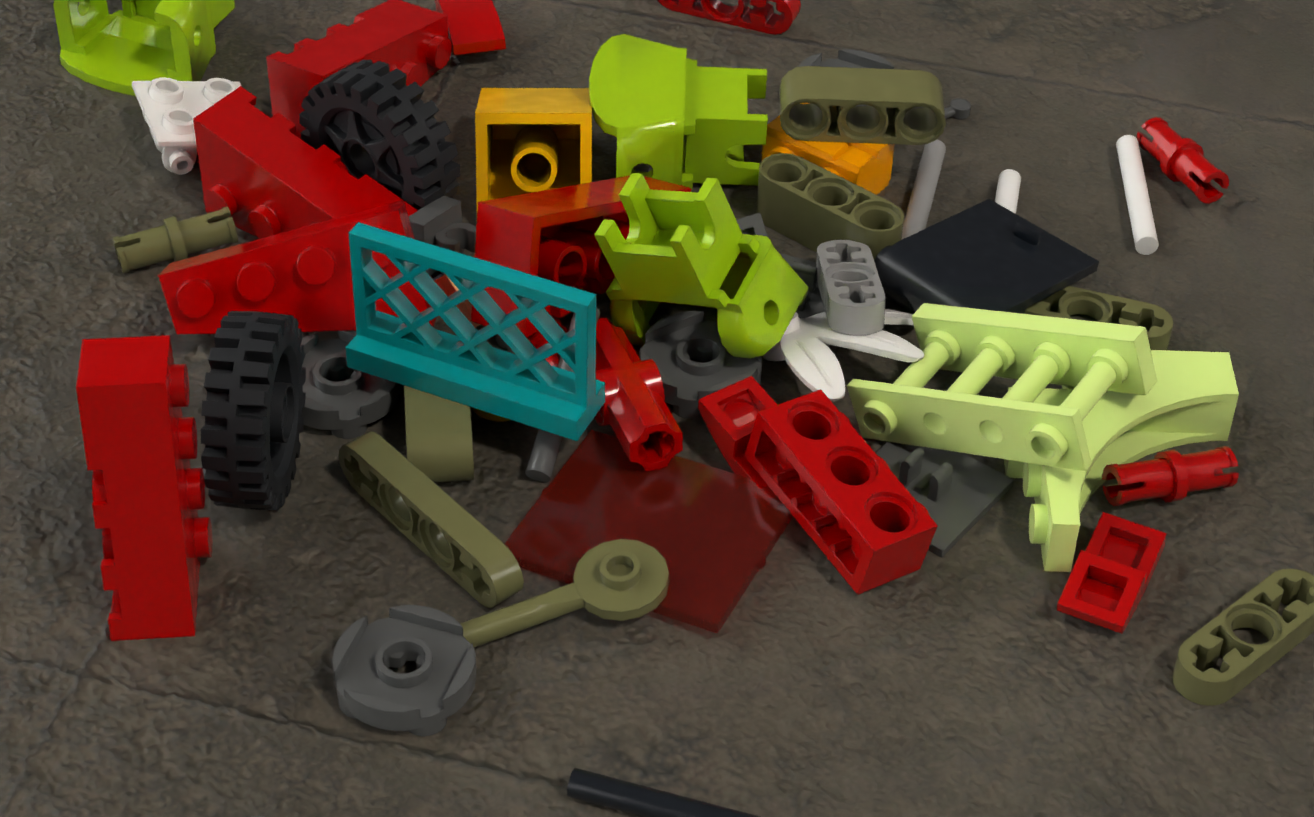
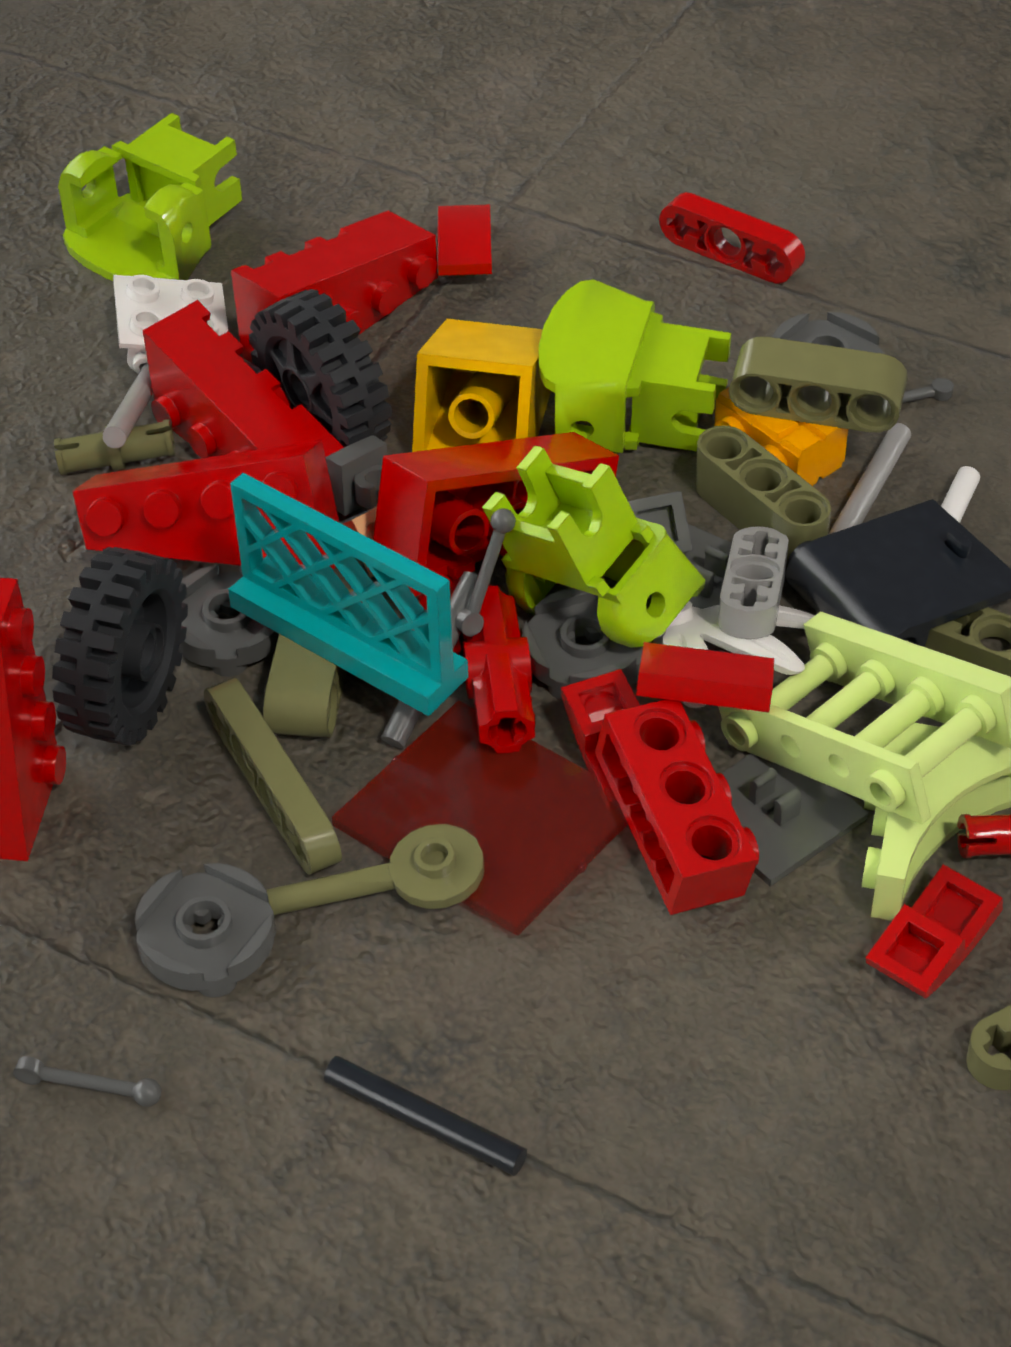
camera: 15 degrees right, 5 degrees up
(186, 198) = (129, 410): none -> light grey bar
(617, 247) = (469, 619): none -> dark grey hinge
(842, 368) = (706, 677): none -> red tile

